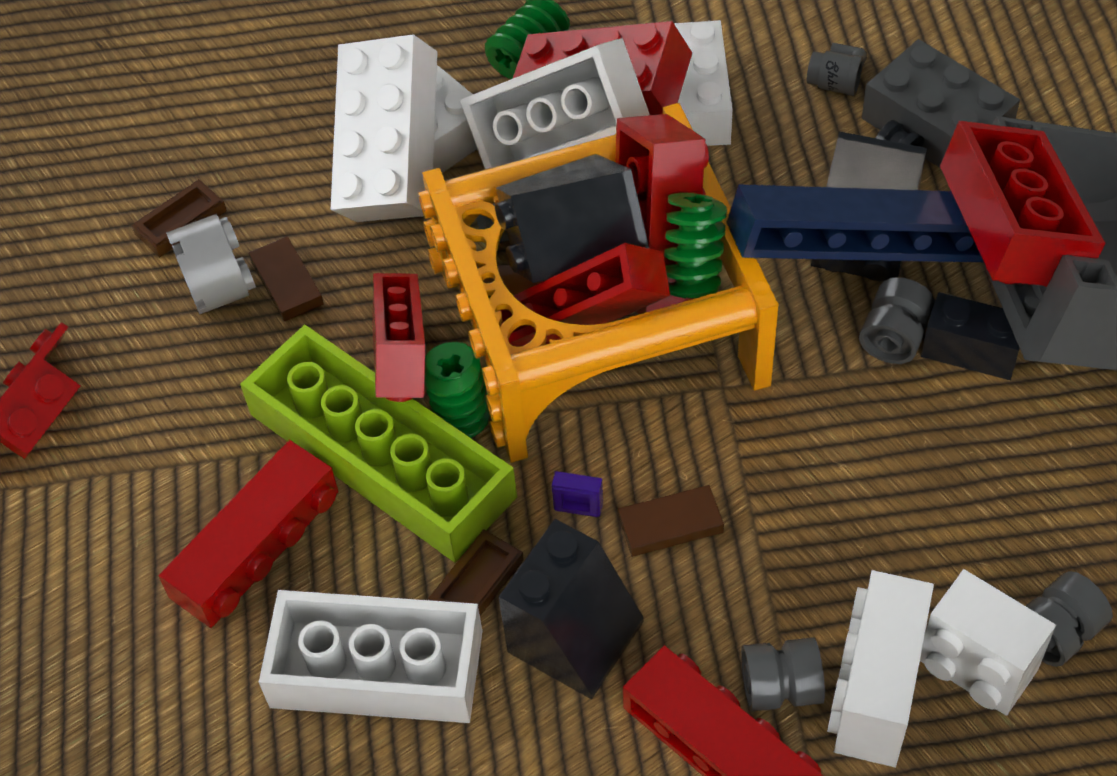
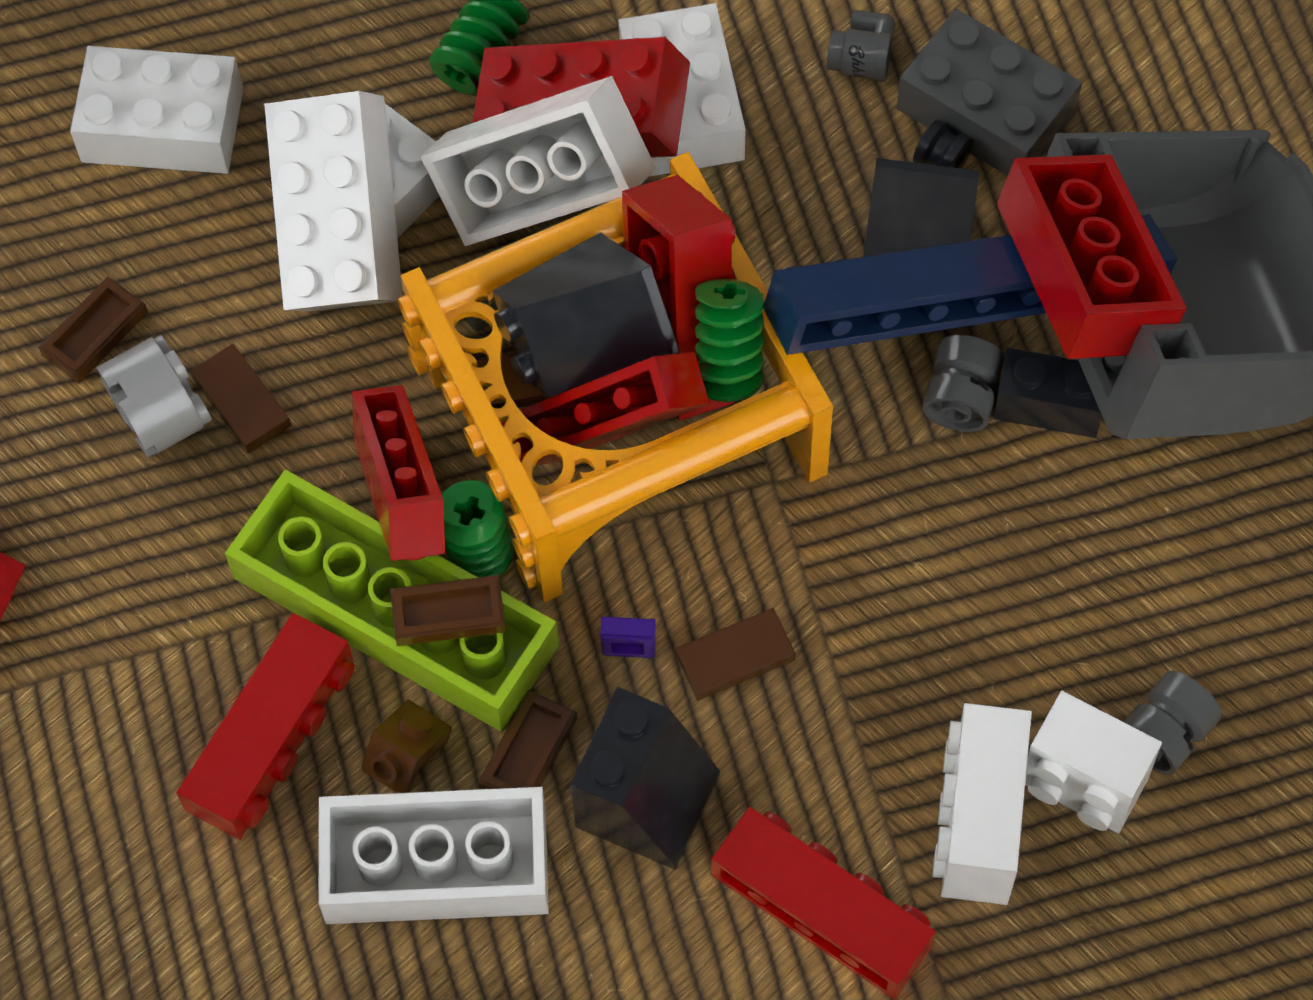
camera: 10 degrees left, 10 degrees up
(263, 64) = (157, 109): none -> white brick
(366, 561) = (404, 746): none -> reddish brown bracket
(419, 447) = (447, 610): none -> reddish brown tile
(783, 674) = (879, 821): dark grey wheel -> none

